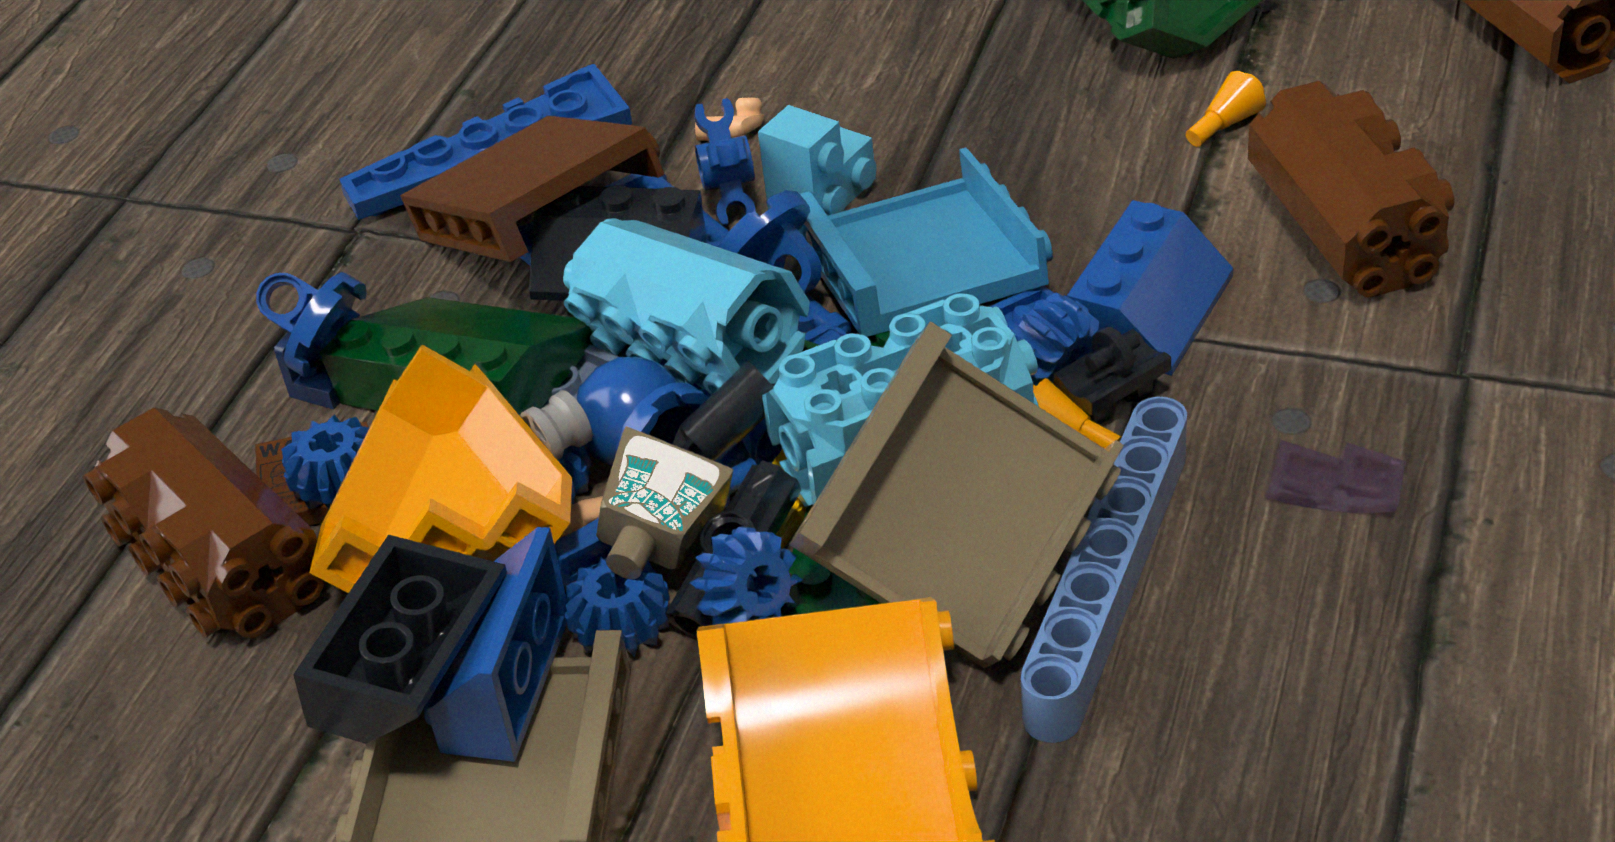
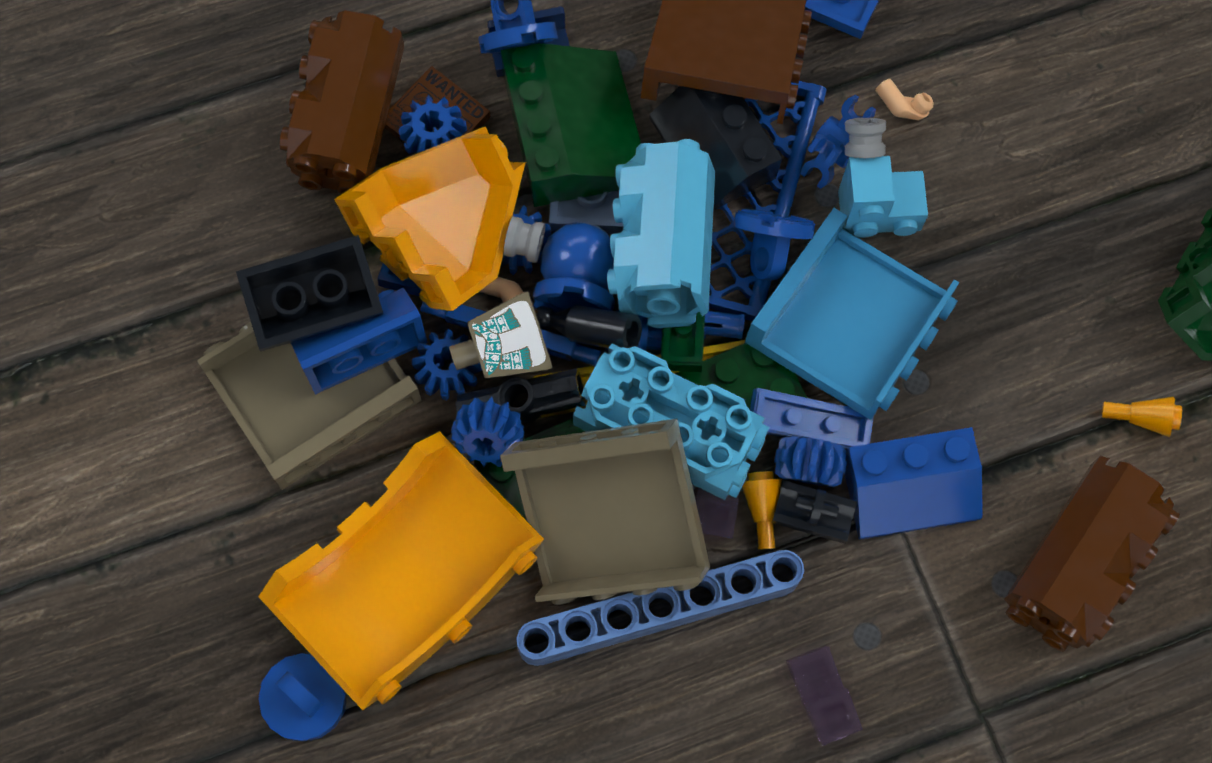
camera: 45 degrees right, 30 degrees up
(749, 111) = (865, 137): none -> light grey wheel

